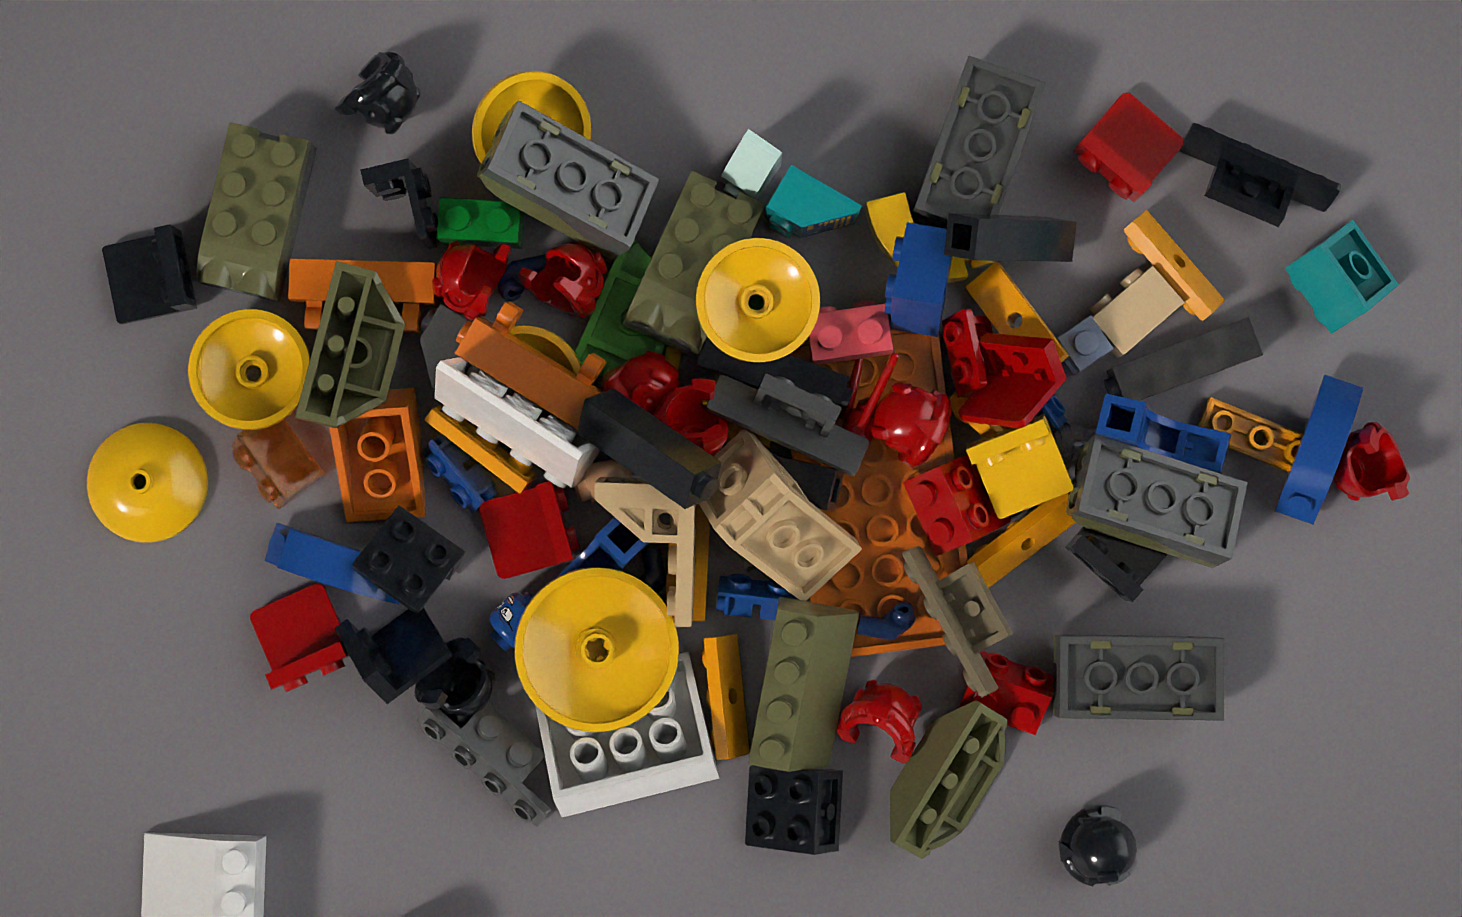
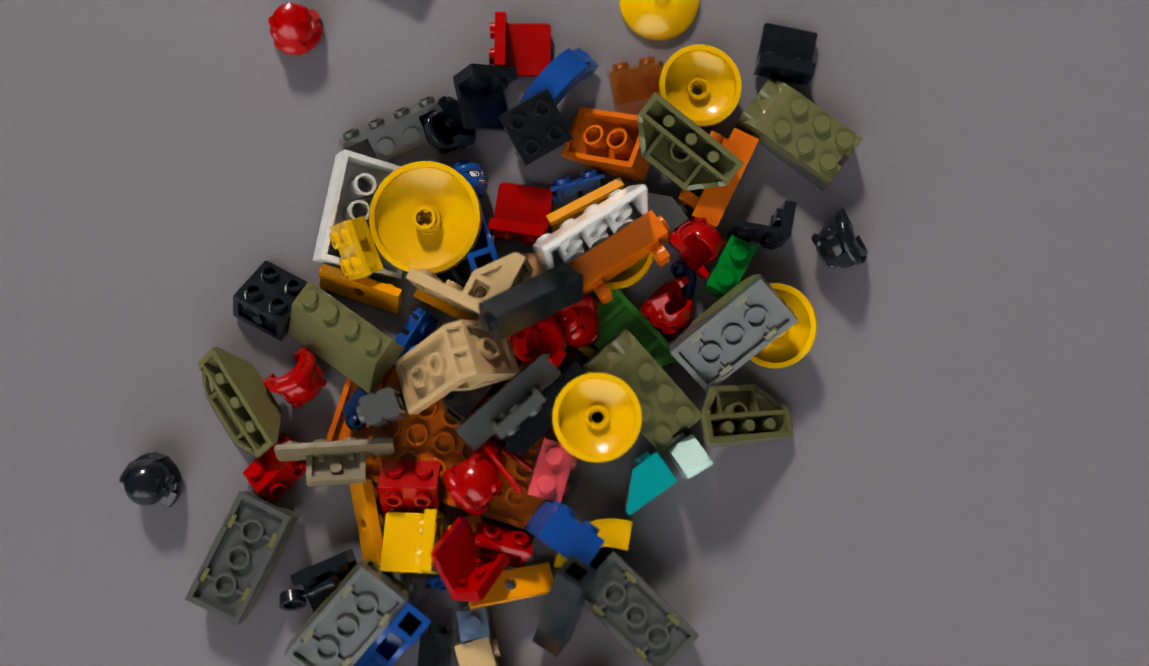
camera: 110 degrees right, 5 degrees down
(667, 119) = (743, 416): none -> olive wedge
(680, 719) = (355, 248): none -> yellow bracket
(871, 584) = (382, 408): none -> dark grey brick
(1159, 585) = (296, 599): none -> black piece

